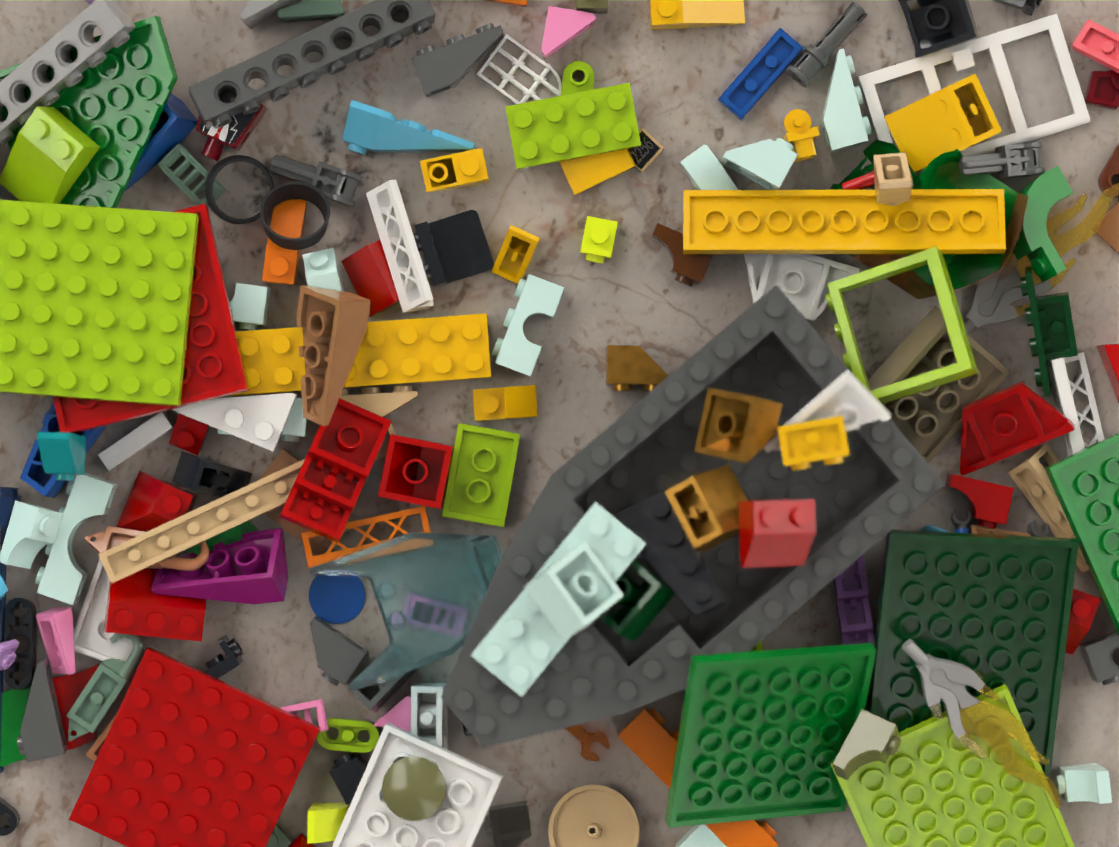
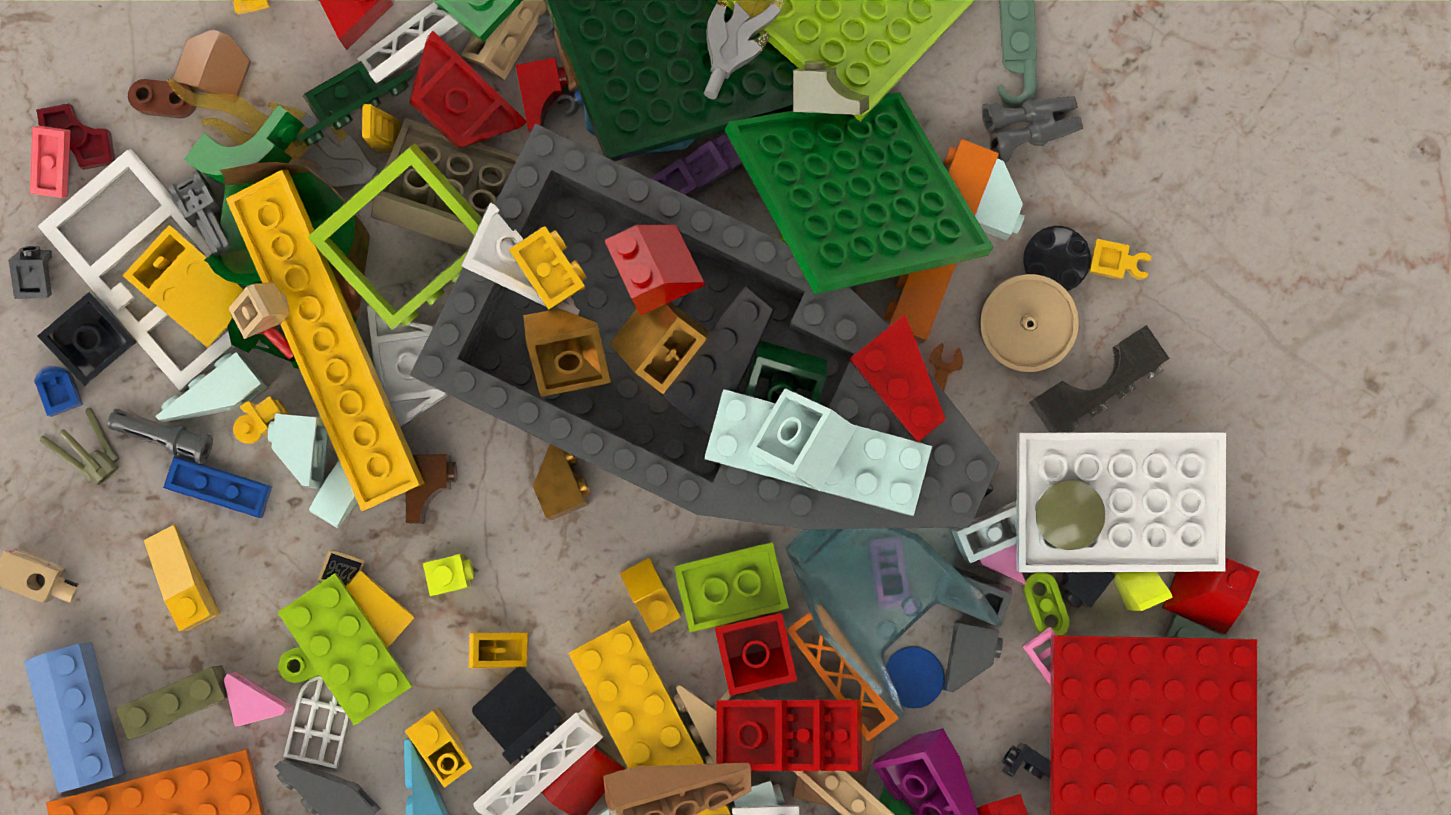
camera: 110 degrees left, 5 degrees down
(535, 297) = (532, 610): light aqua arch -> none
(589, 696) = (900, 378): none -> red wing
(1008, 346) = (379, 129): none -> yellow slope

